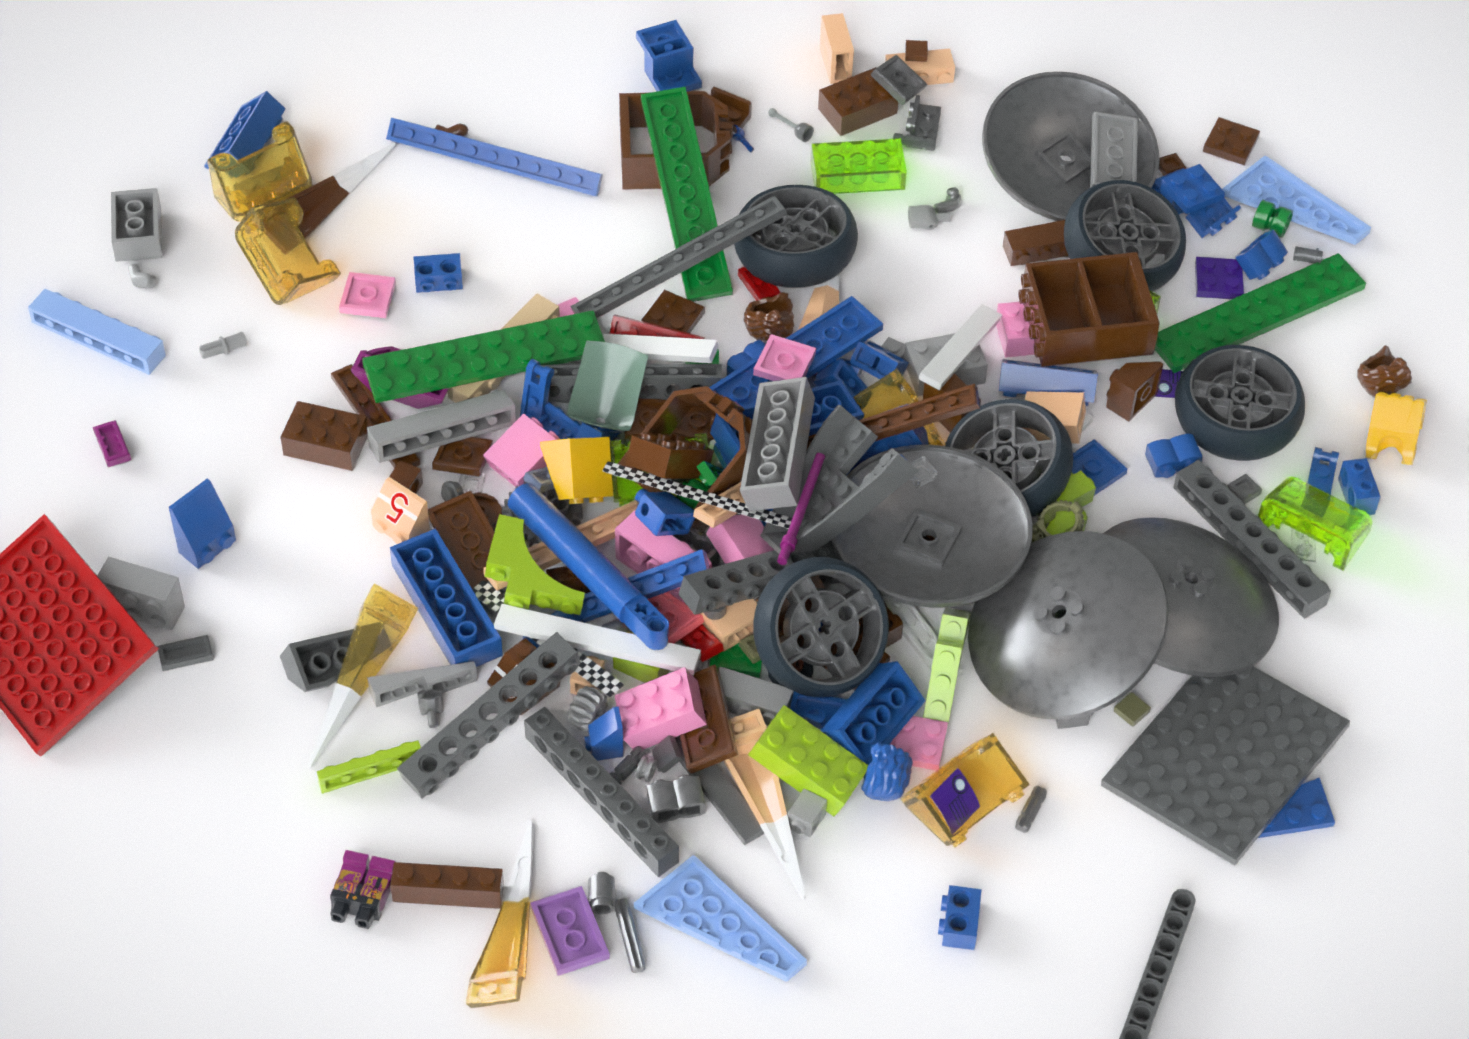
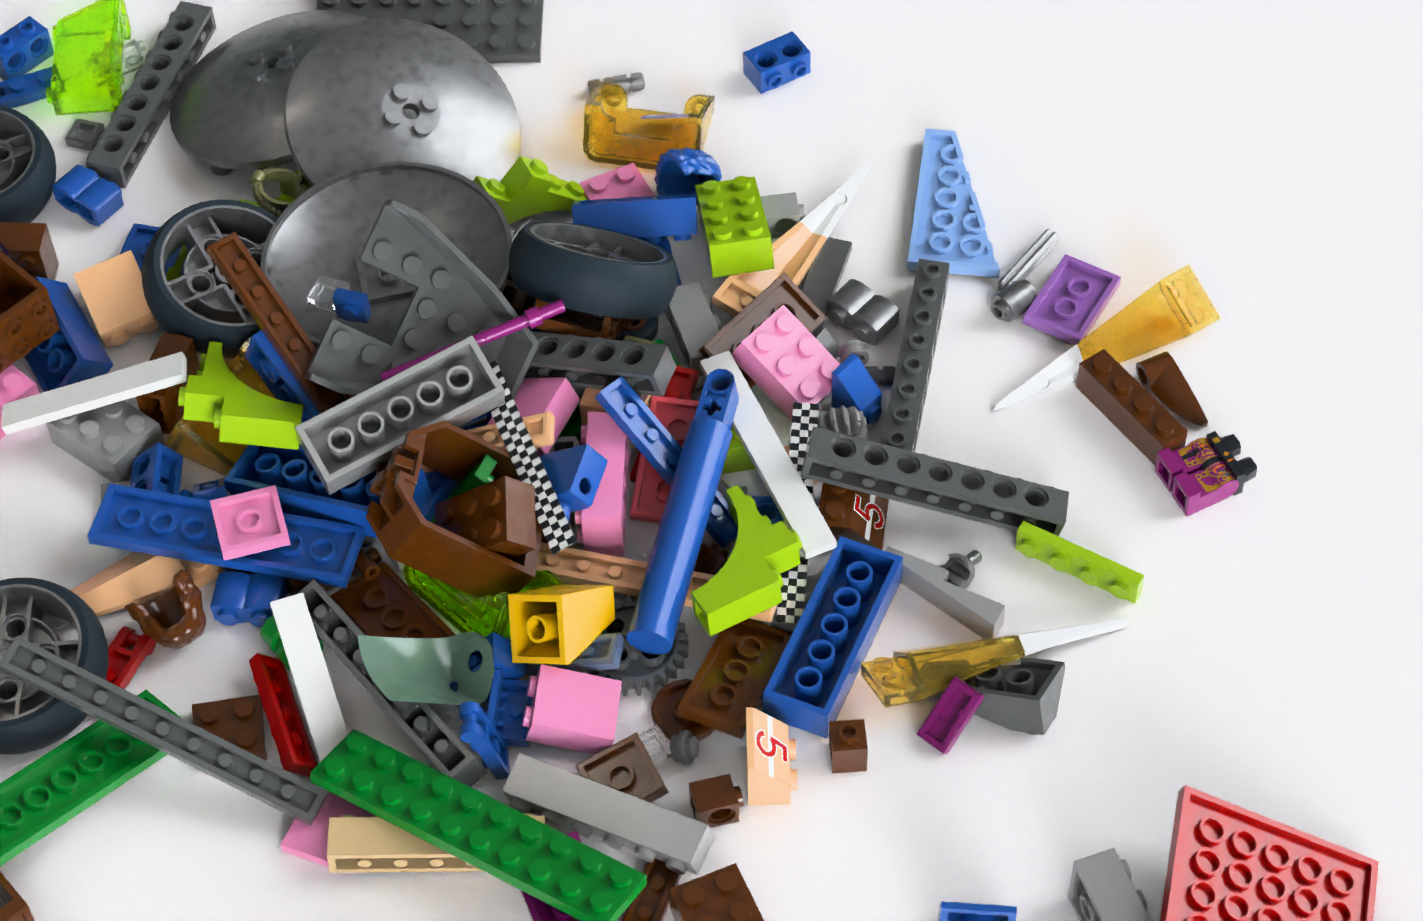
camera: 125 degrees left, 0 degrees up
(185, 653) = (1130, 842): dark grey tile -> none
(337, 619) = (950, 715): none -> magenta plate
(371, 561) = (848, 746): none -> reddish brown brick
(446, 930) = (1171, 387): none -> reddish brown piece
(870, 397) = (236, 408): none -> lime arch

